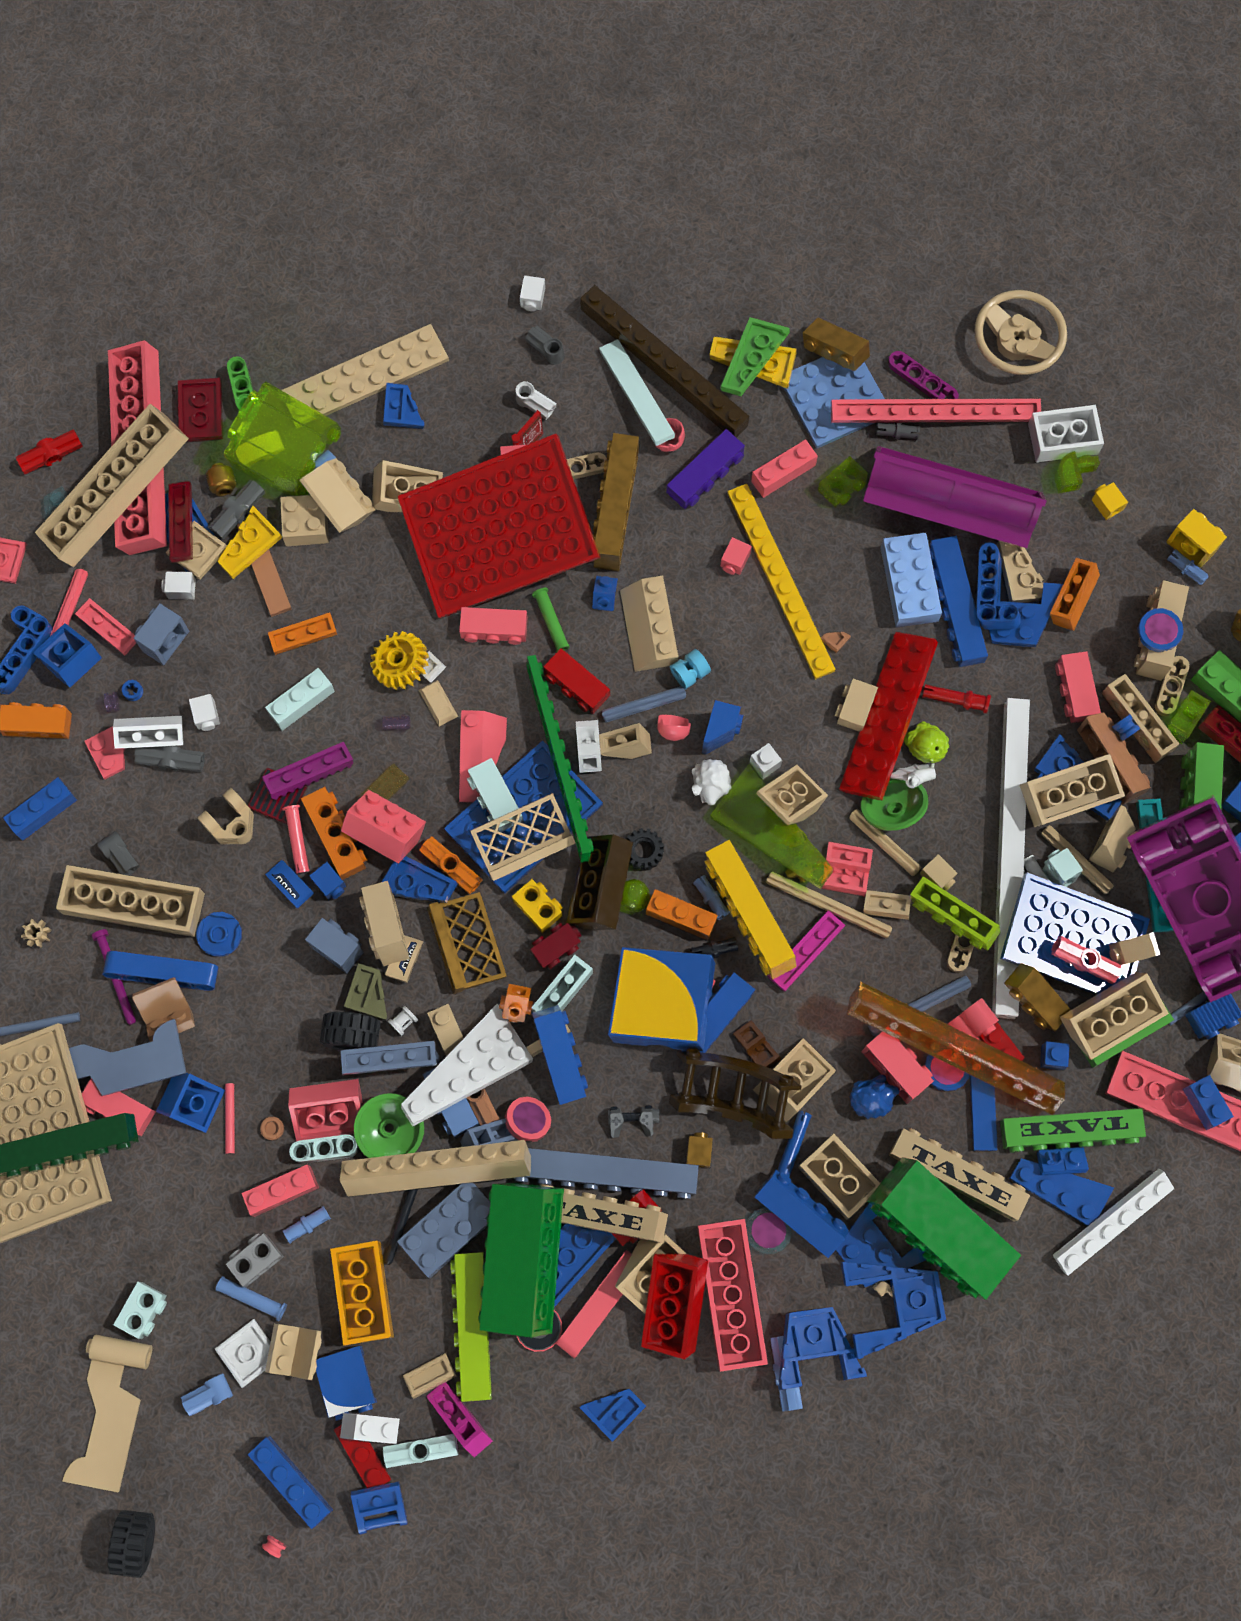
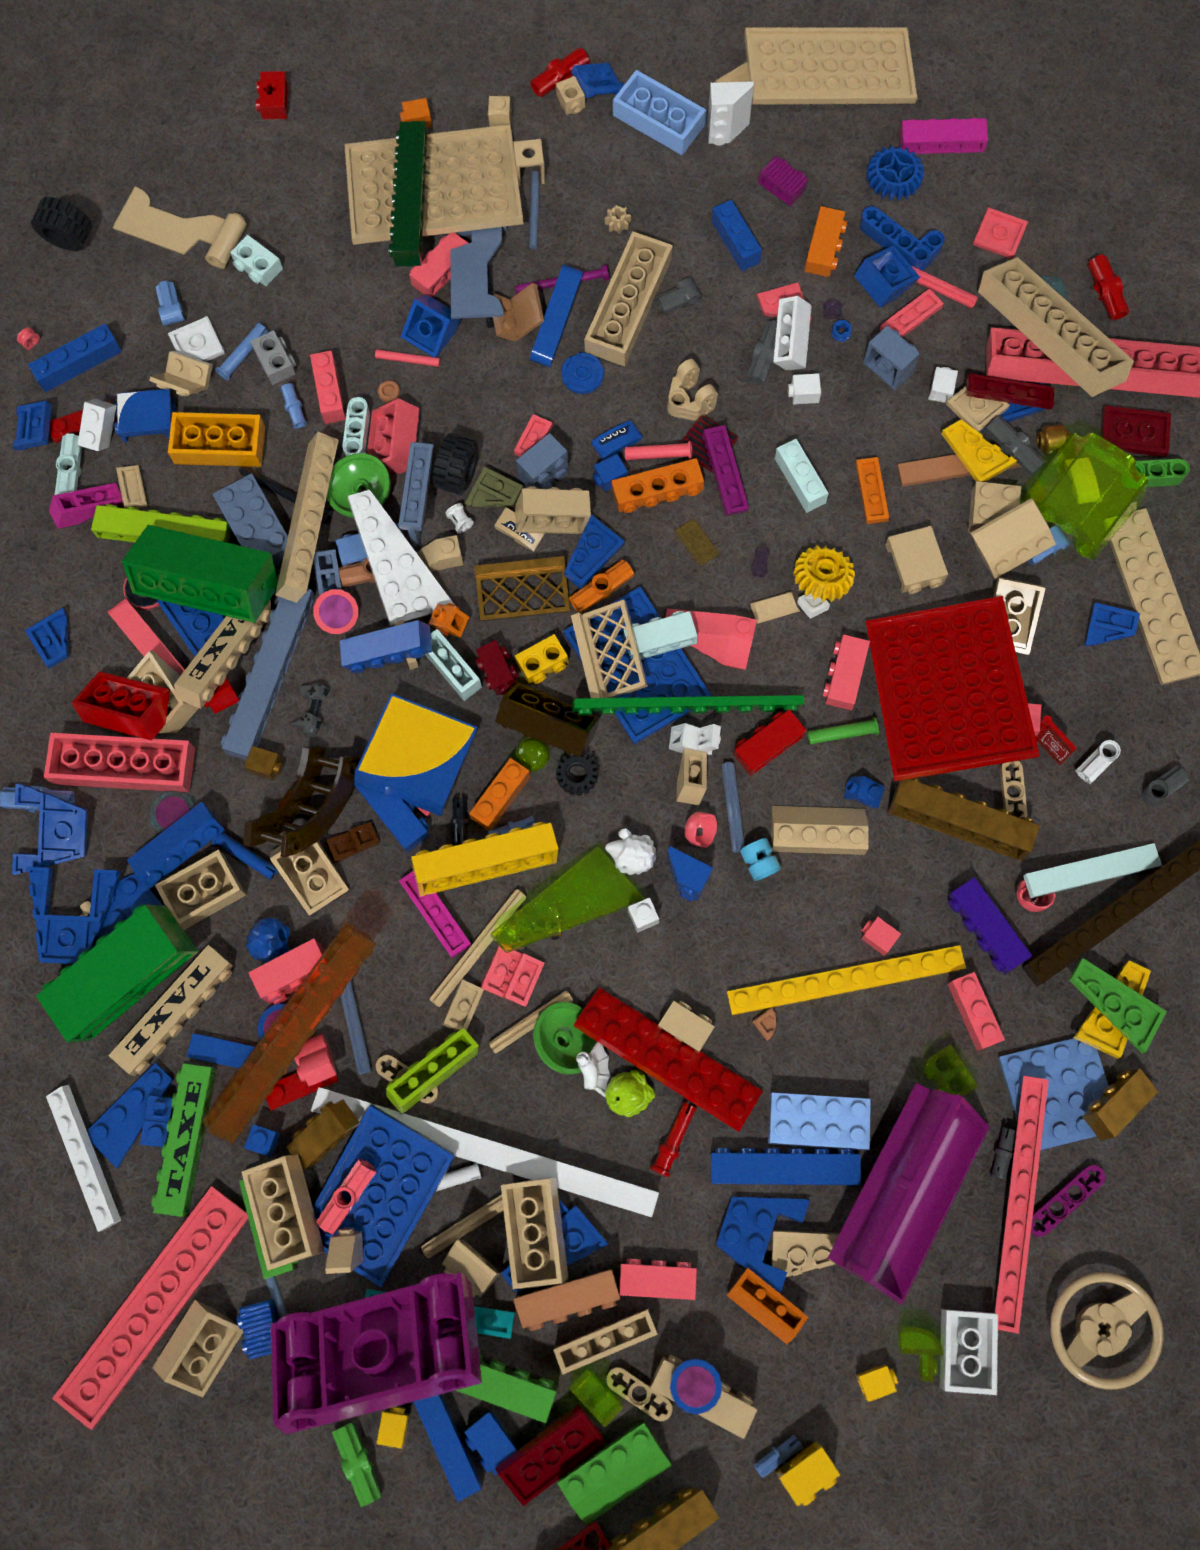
camera: 105 degrees right, 0 degrees up
(301, 966) = (535, 431): none -> coral plate
(368, 580) = (917, 559): none -> tan panel
(383, 826) = (651, 527): coral brick -> none
(793, 796) = (593, 926): tan slope -> none
(939, 873) = (482, 1069): tan brick -> none
(993, 586) = (791, 1212): blue beam -> none
(1062, 867) = (453, 1199): light aqua brick -> none
(1126, 727) = (594, 1317): blue wheel -> none
(1208, 1102) = (167, 1288): blue brick -> none

